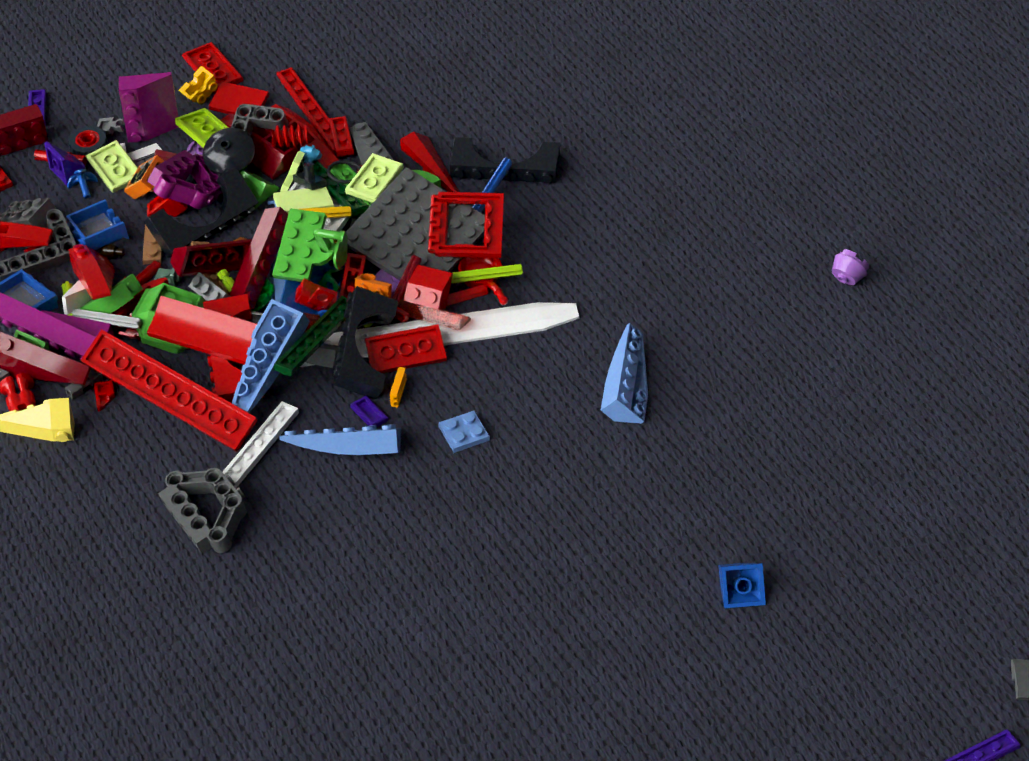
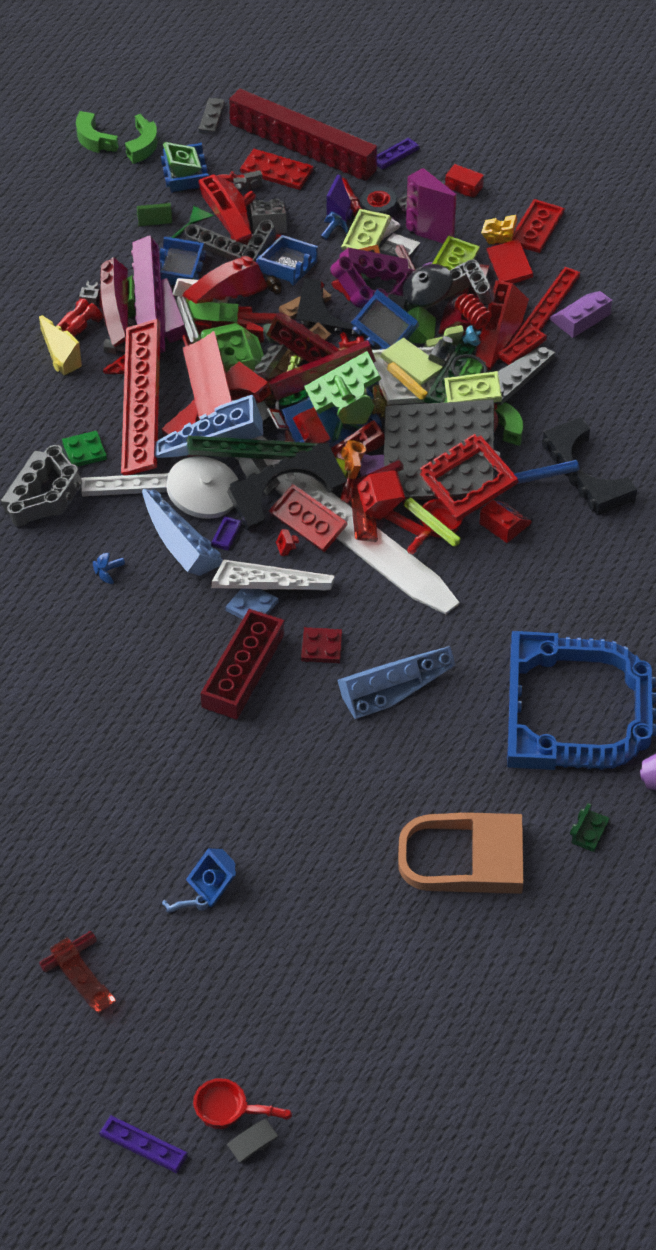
camera: 55 degrees right, 5 degrees up
(110, 80) = (464, 180): none -> red brick
(179, 459) = (84, 449): none -> green plate
(236, 230) = (345, 342): none -> red piece
(242, 196) = (384, 322): none -> window
(307, 401) = (201, 486): none -> white dish
(337, 86) = (583, 313): none -> medium lavender slope
(337, 503) = (103, 564): none -> blue plant
(398, 387) = (263, 535): light orange tile -> none
(418, 377) = (285, 542): none -> red tile
(423, 152) = (551, 408): red wedge -> none
(445, 409) = (253, 576): none -> white wing
(519, 237) = (502, 520): none -> red slope
(531, 462) = (242, 664): none -> dark red brick
(547, 407) = (321, 645): none -> dark red plate
(743, 721) = (80, 944): none -> dark red axle
(756, 611) = (200, 906): none -> medium blue piece
(757, 333) = (543, 751): none -> blue arch
(781, 723) = (80, 976): none -> clear red slope
(846, 398) = (495, 853): none -> nougat window
(866, 336) = (589, 828): none -> dark green bracket
(978, 682) = (223, 1102): none -> red piece

